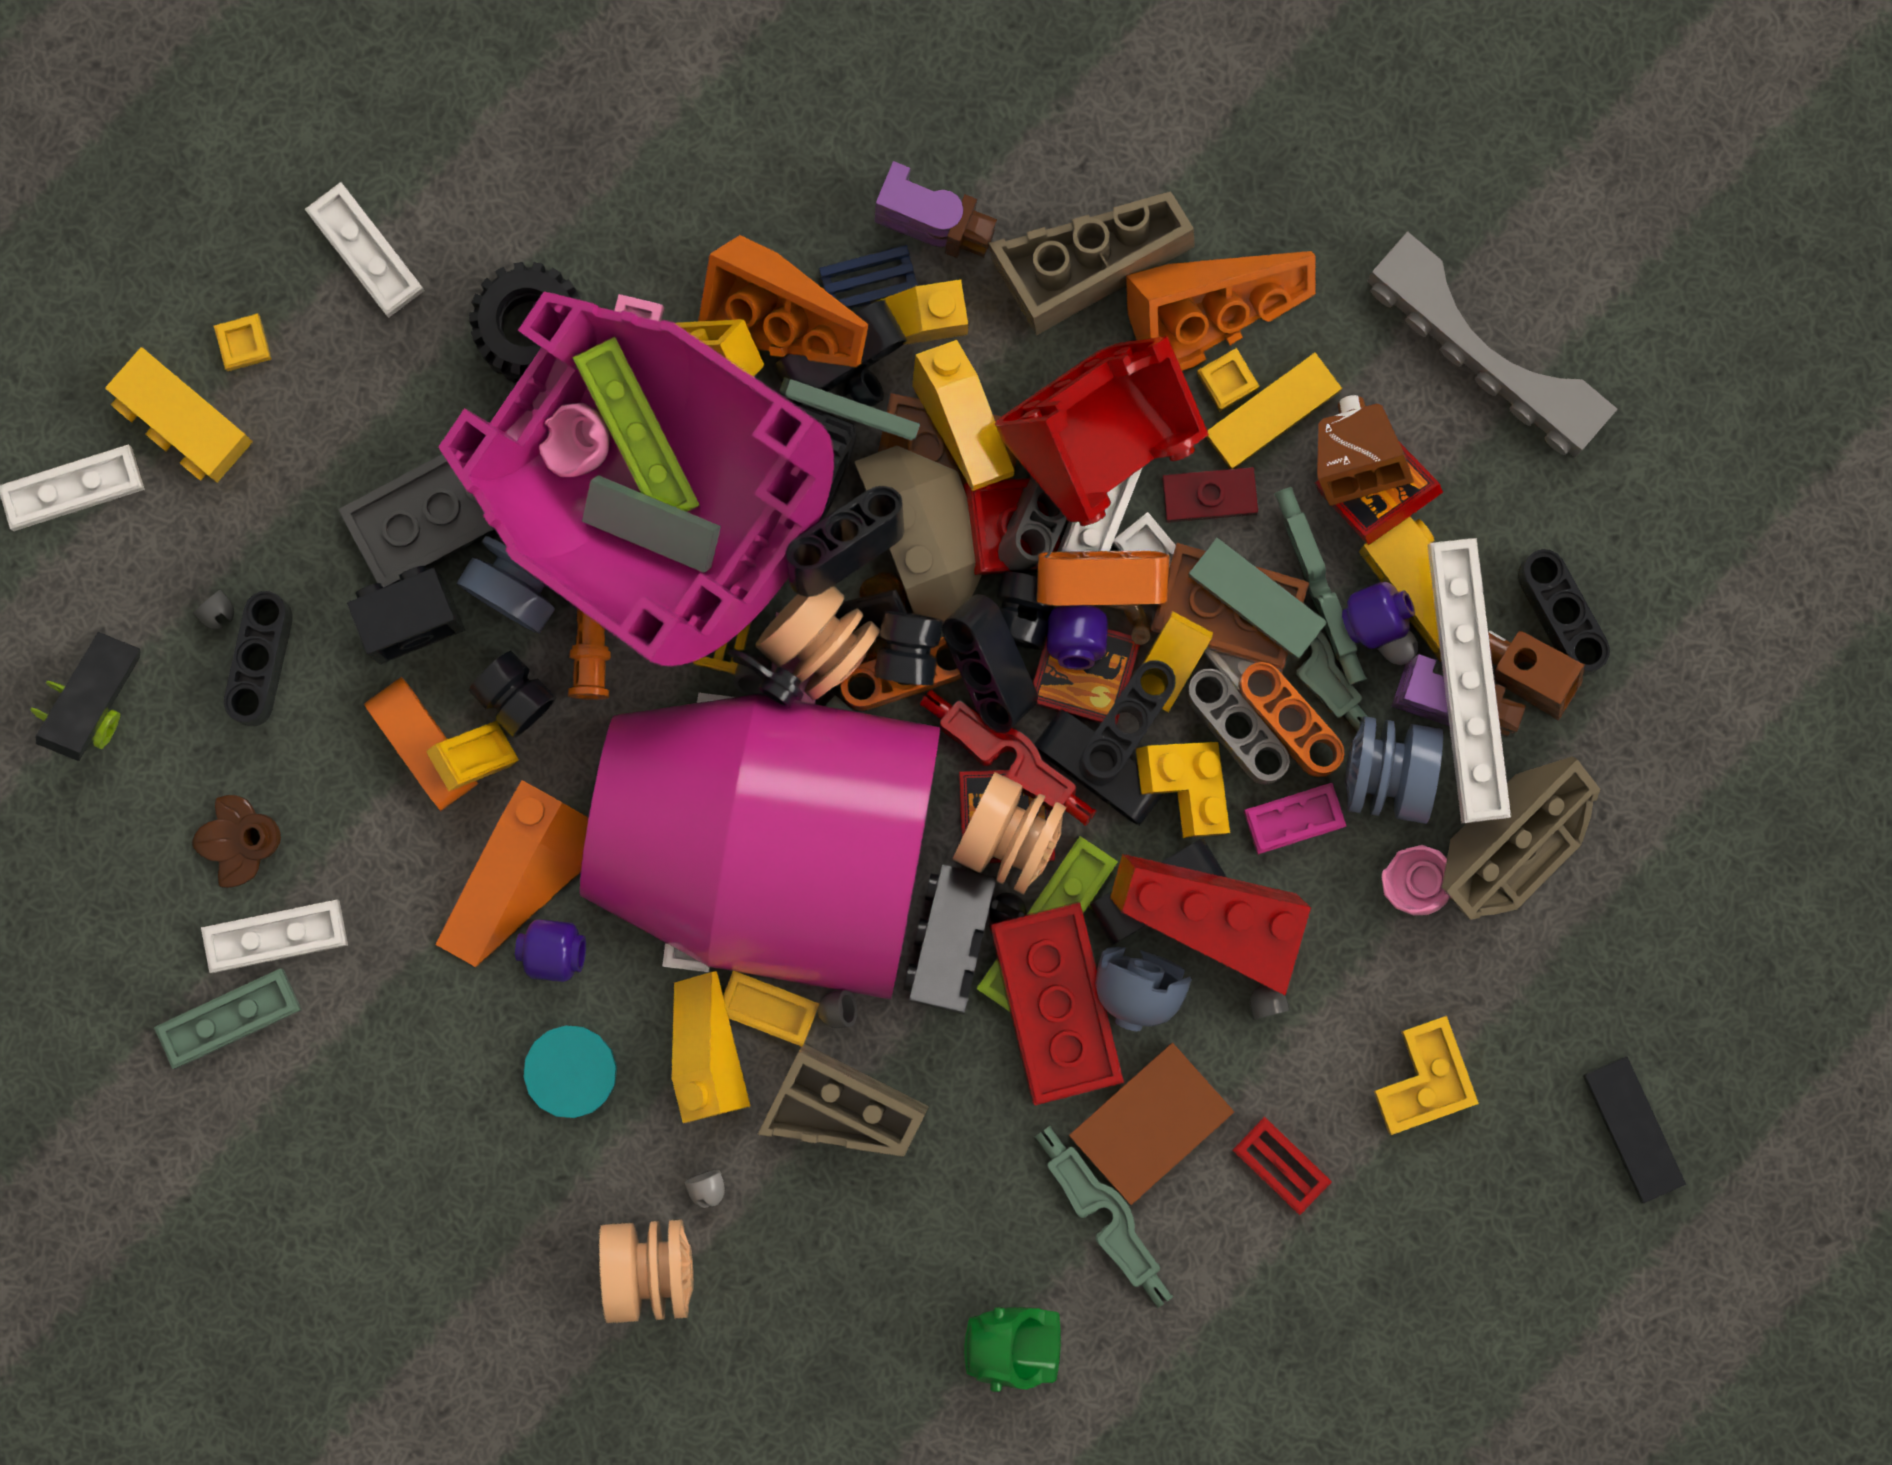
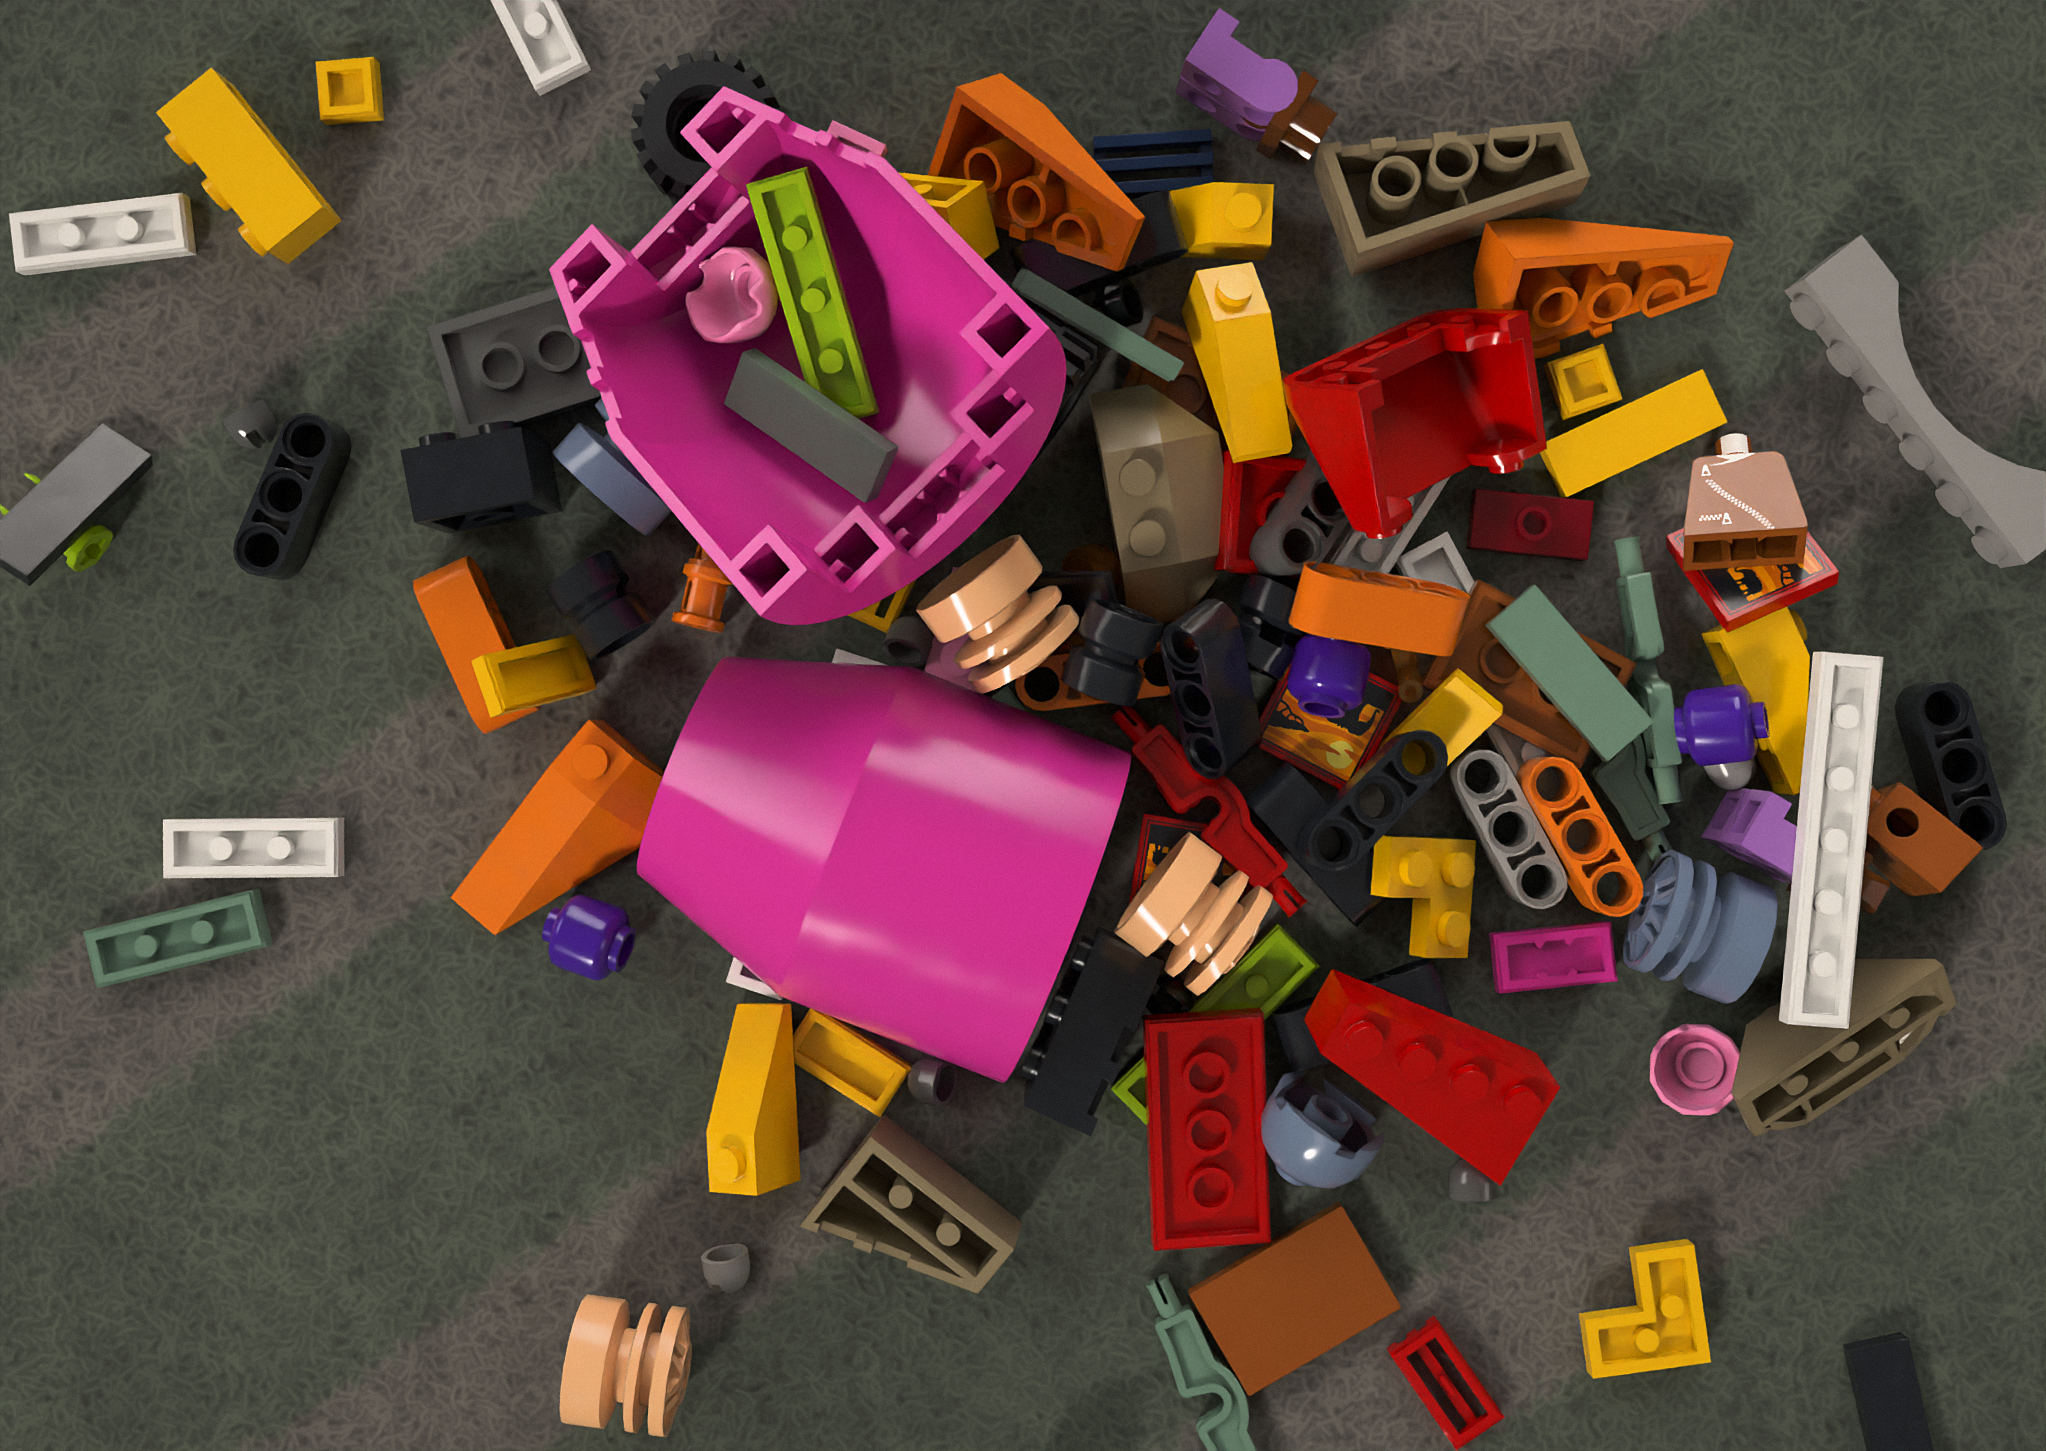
camera: 10 degrees right, 5 degrees up
(230, 840) = (222, 716): reddish brown plate -> none
(570, 1071) = (587, 1089): teal tile -> none
(777, 685) = (935, 667): black plate -> none
(845, 541) = (1042, 521): black beam -> none

